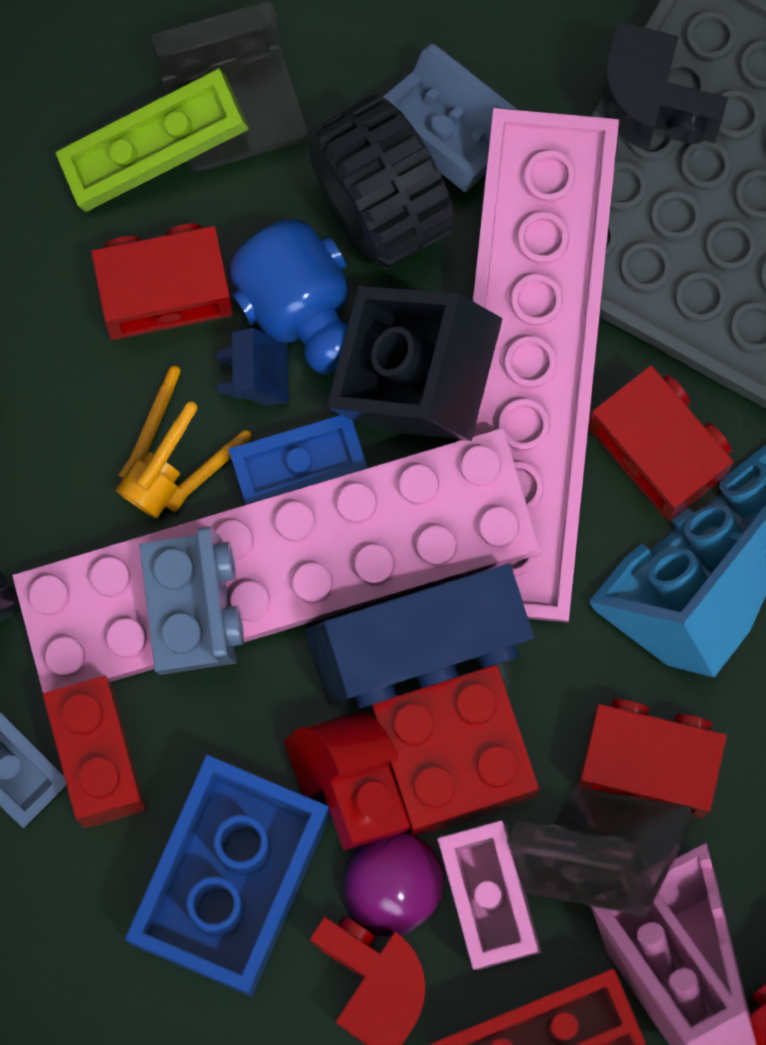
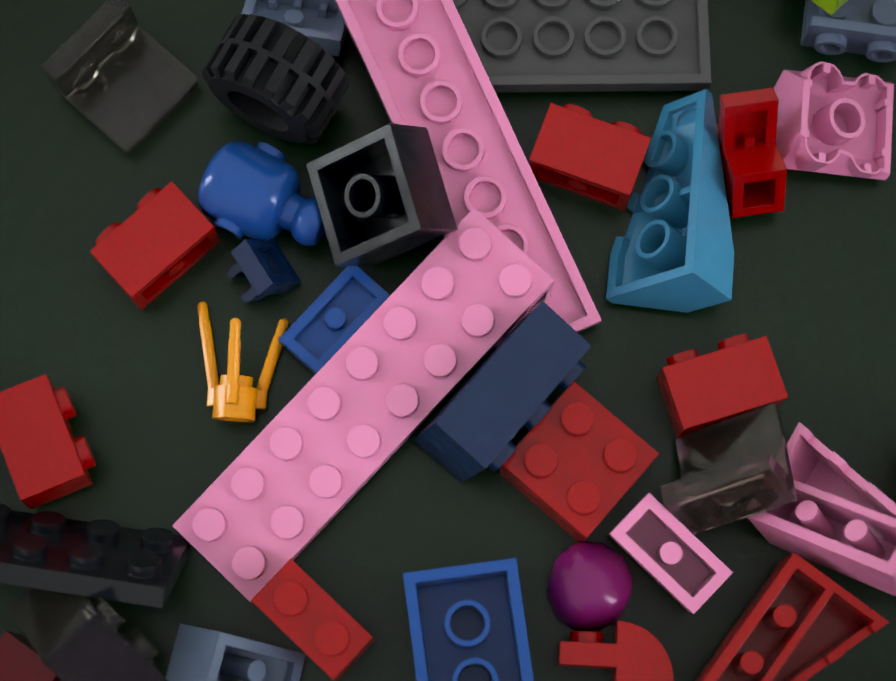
camera: 30 degrees left, 0 degrees up
(152, 140) = (86, 146): lime plate -> none
(190, 602) = (320, 467): sand blue bracket -> none
(350, 767) = (511, 517): red brick -> none

